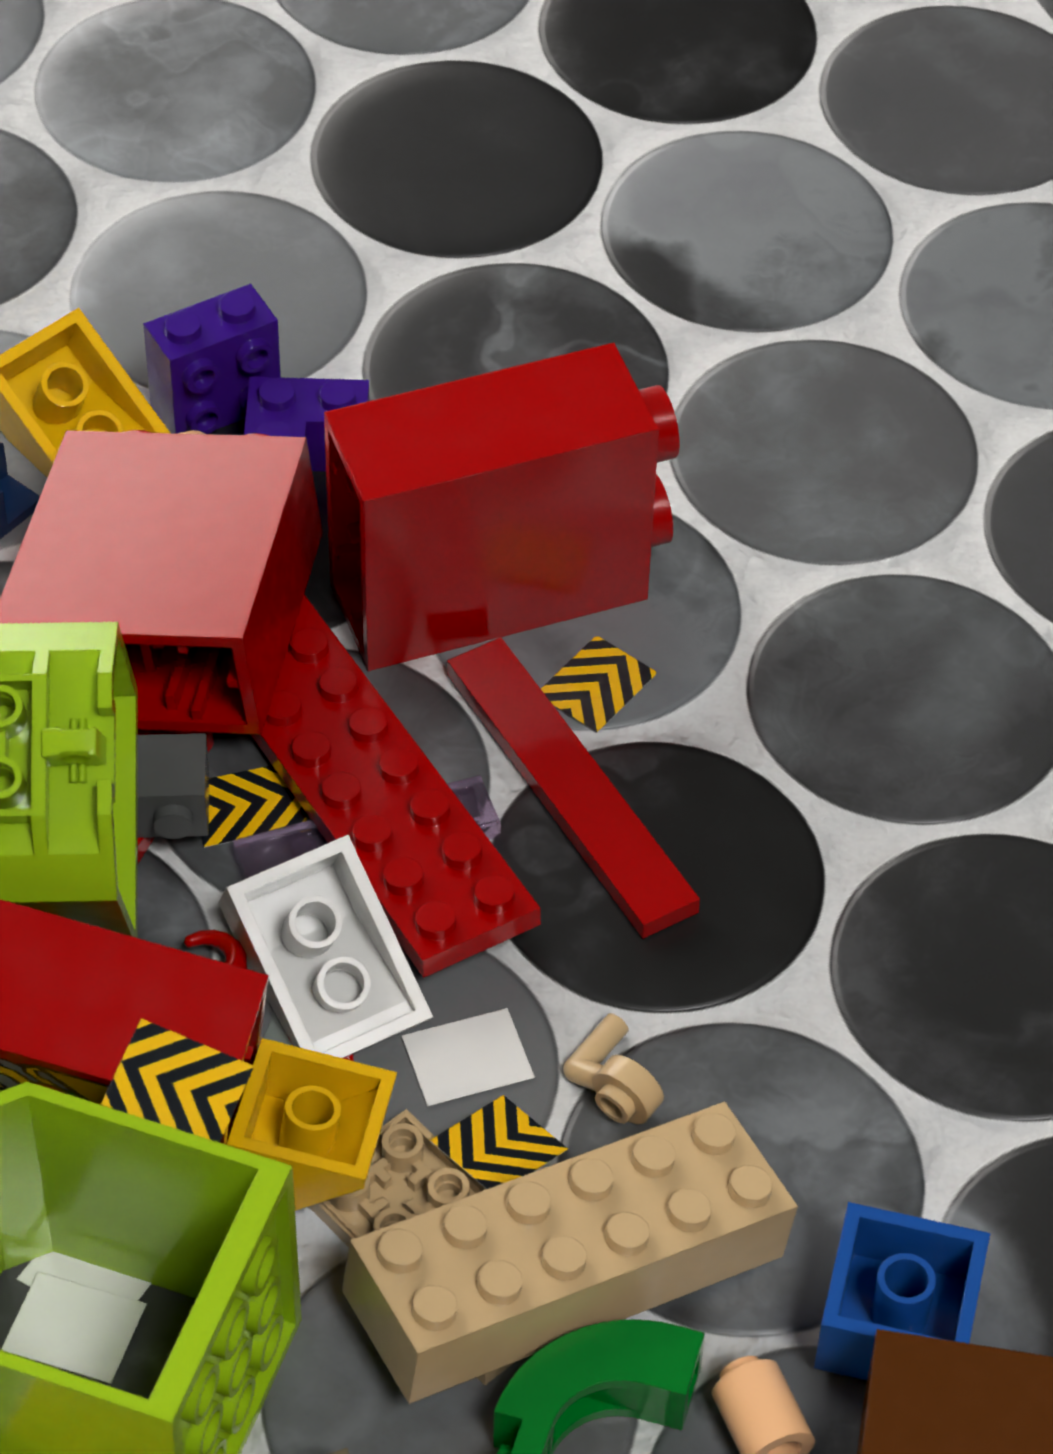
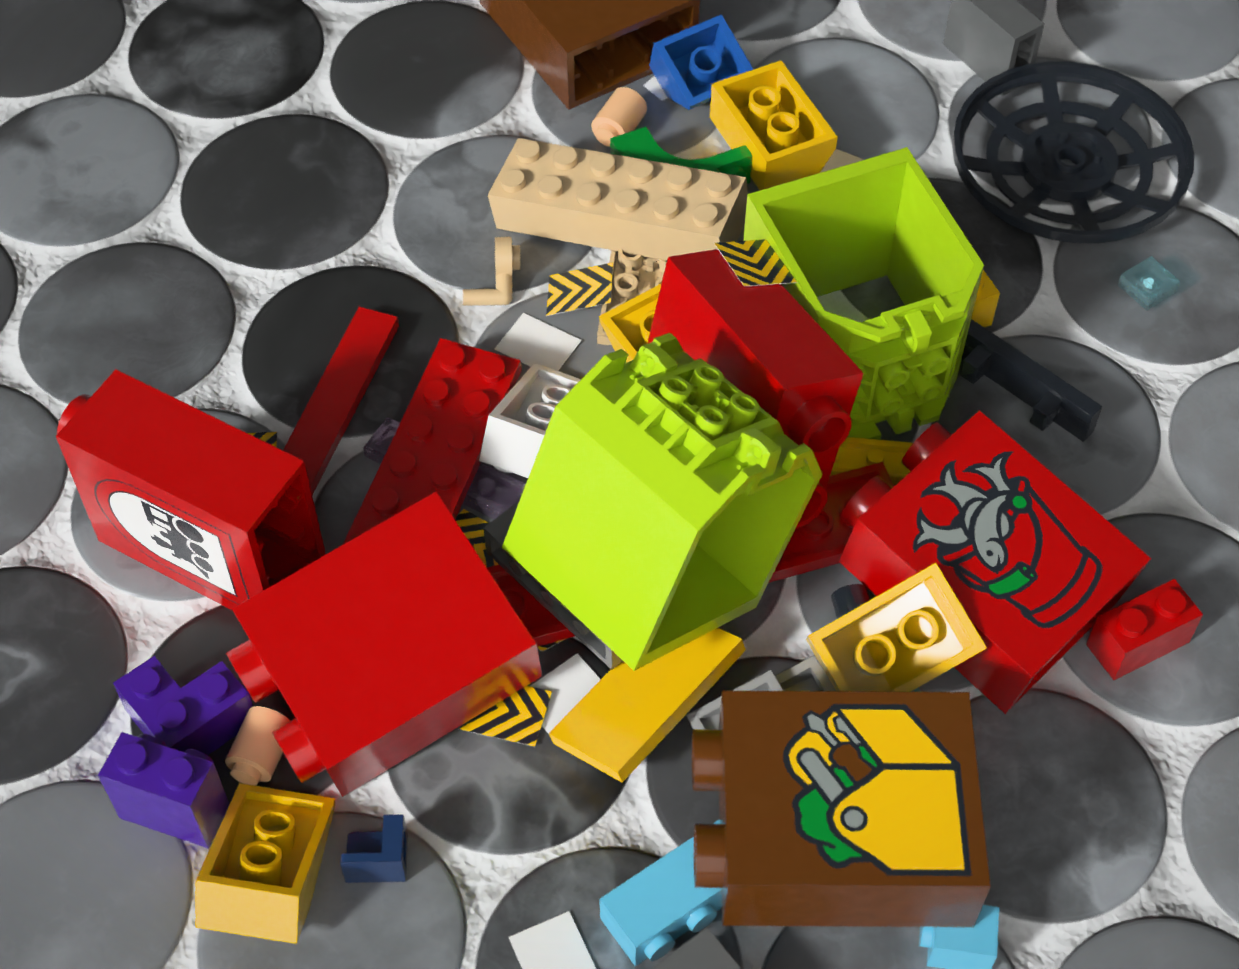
camera: 130 degrees left, 5 degrees up
(897, 1278) = (521, 96): blue brick -> none

